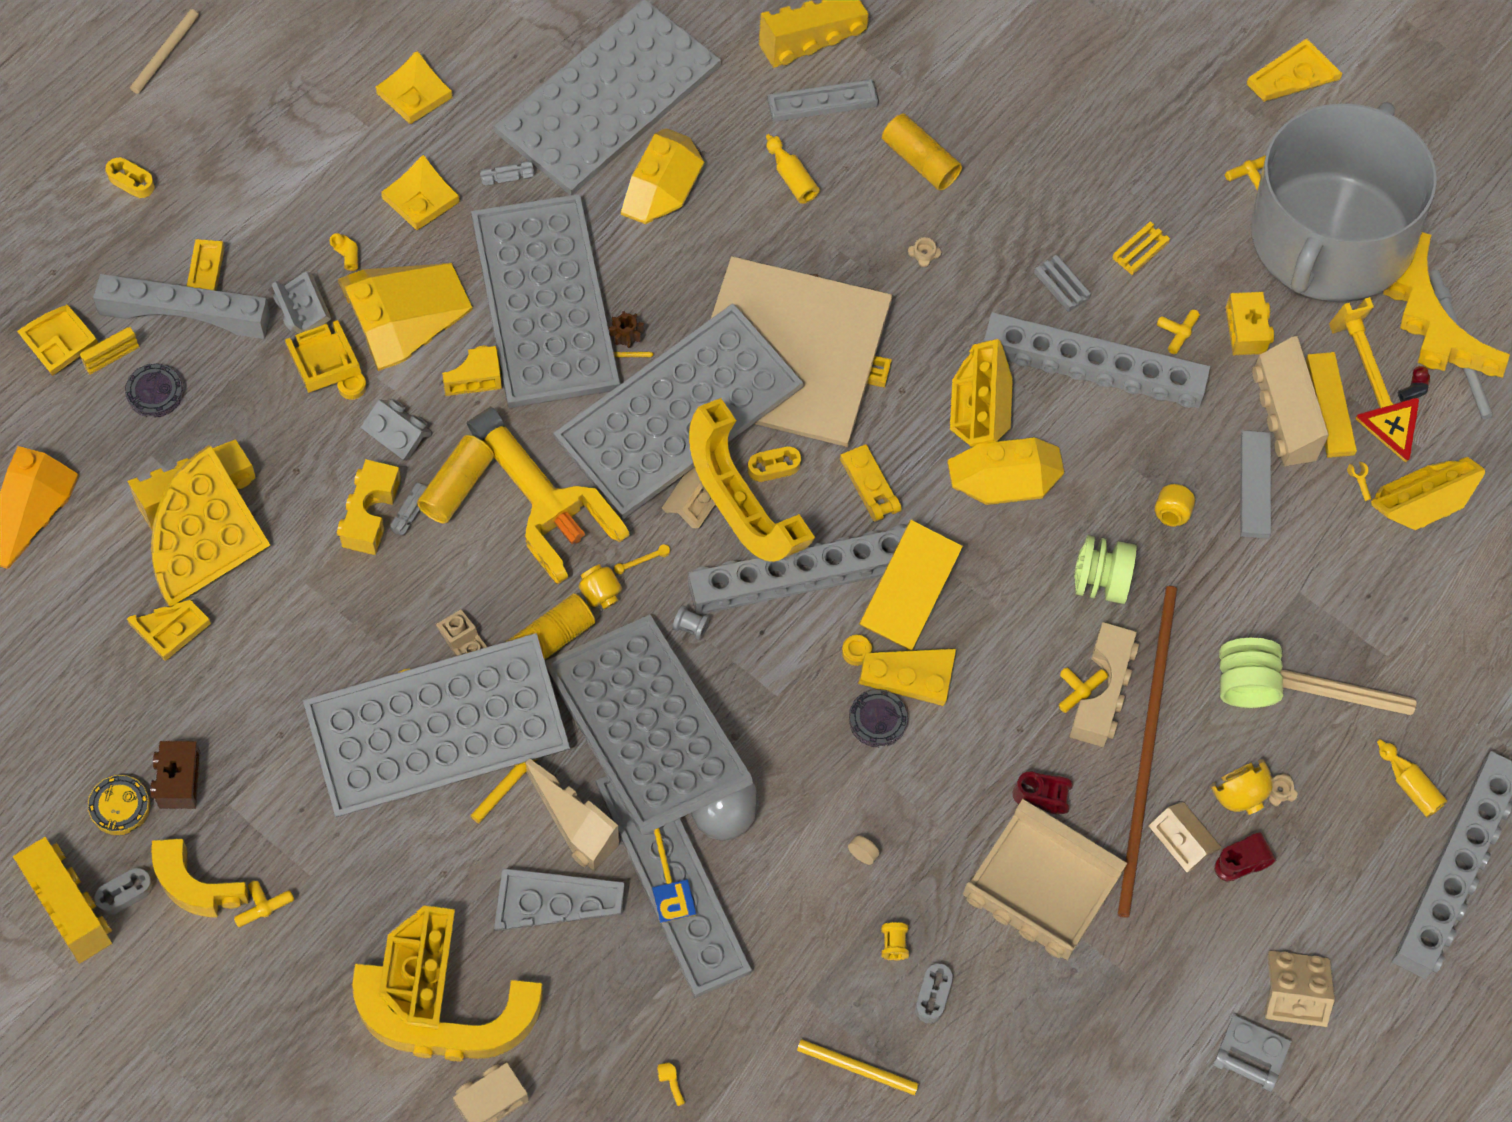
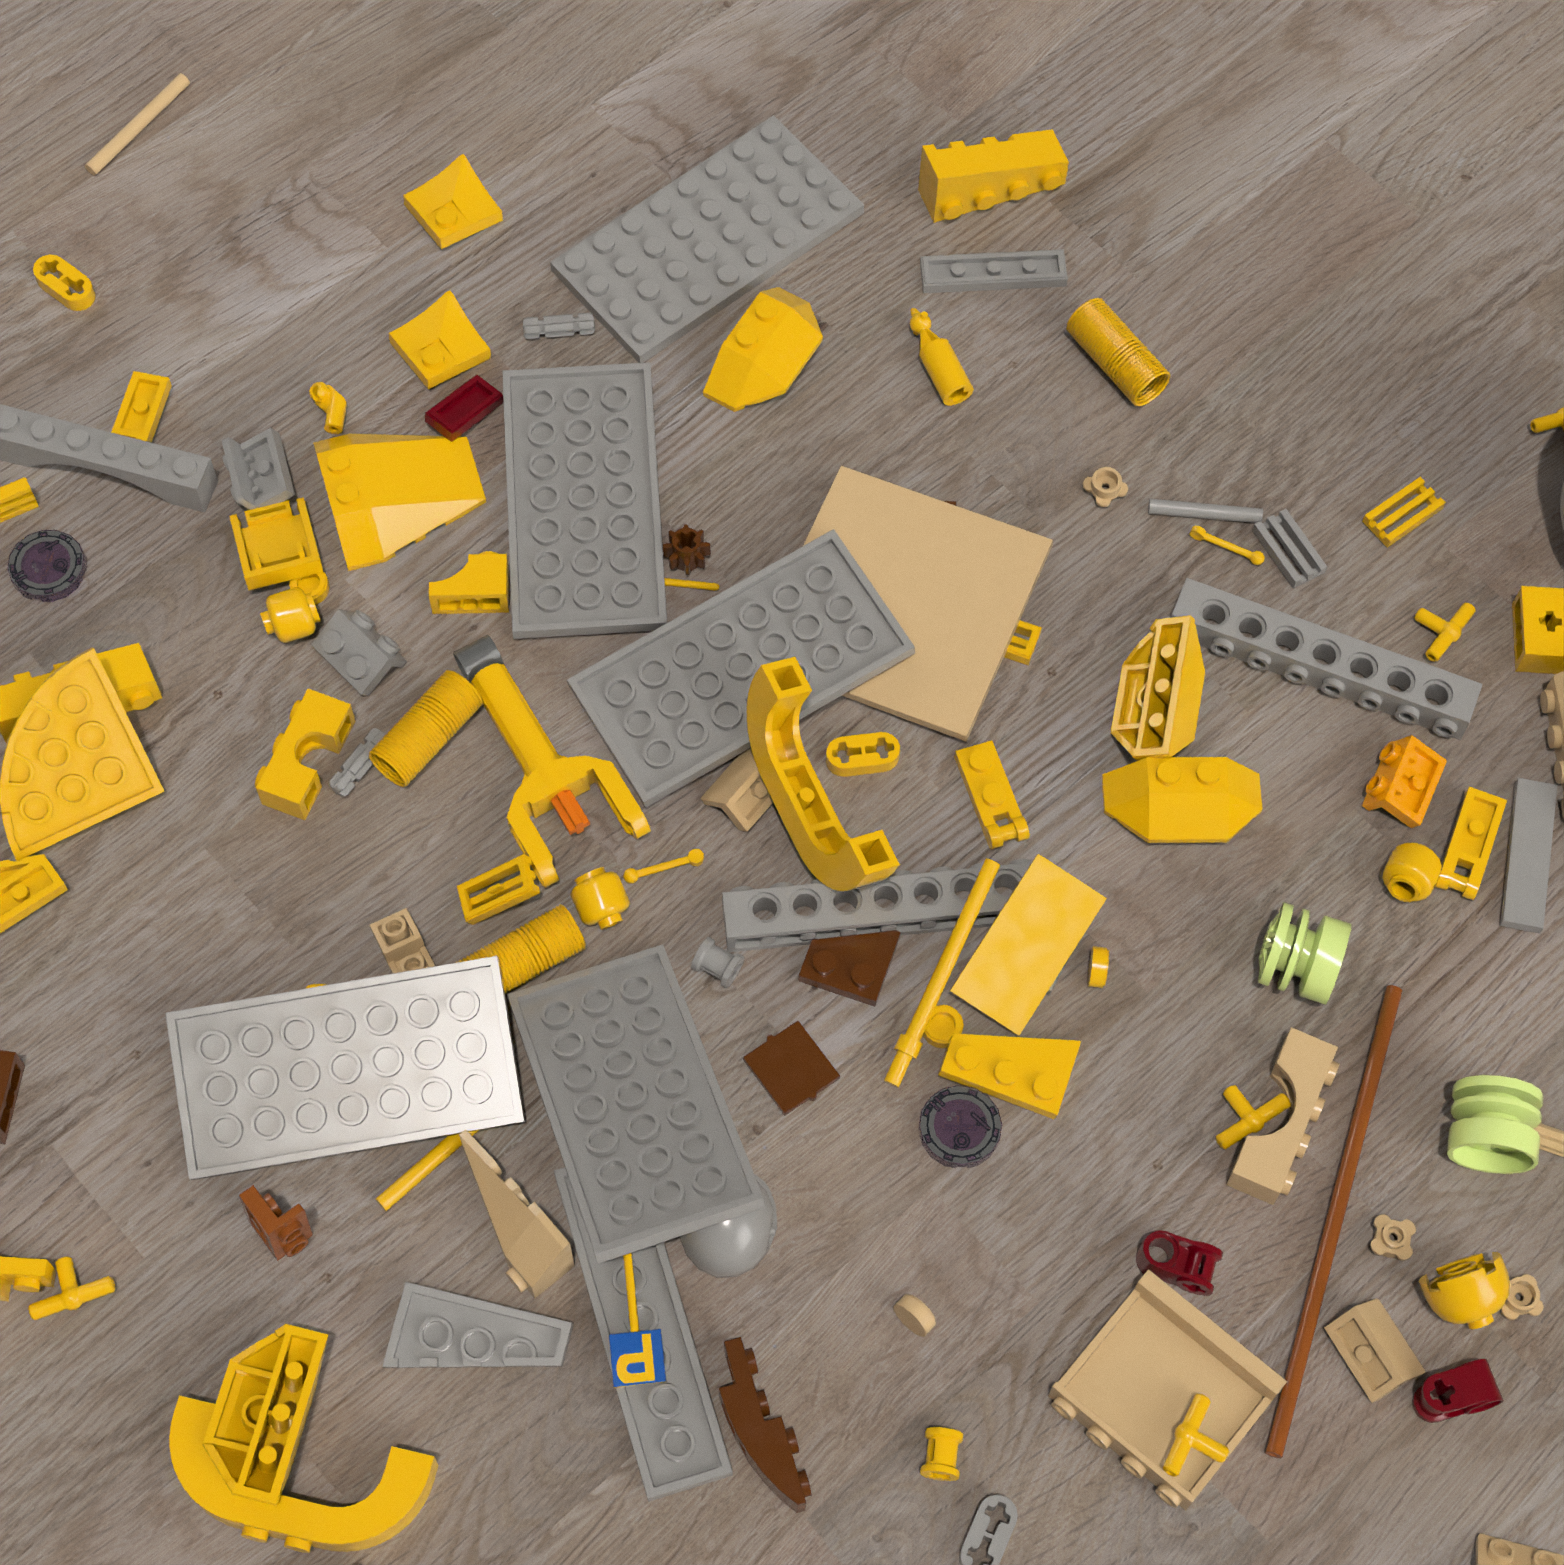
camera: 10 degrees right, 0 degrees up
(343, 407) = (290, 615): none -> yellow head
(404, 844) = (281, 1234): none -> dark orange bracket
(446, 241) = (464, 408): none -> dark red tile
(541, 567) = (529, 889): none -> yellow tile
(753, 691) = (791, 1068): none -> reddish brown piece
(771, 948) = (764, 1443): none -> reddish brown slope
(785, 614) = (850, 964): none -> reddish brown wing
(835, 664) = (909, 1044): none -> yellow bar
(961, 595) = (1098, 967): none -> yellow tile
(996, 279) = (1199, 533): none -> yellow hinge
(998, 262) = (1205, 511): none -> light grey bar
(1064, 908) = (1189, 1437): none -> yellow piece
(1163, 440) = (1405, 780): none -> light orange bracket
(1188, 767) = (1384, 1245): none -> tan plate
(1214, 479) = (1471, 841): none -> yellow plate

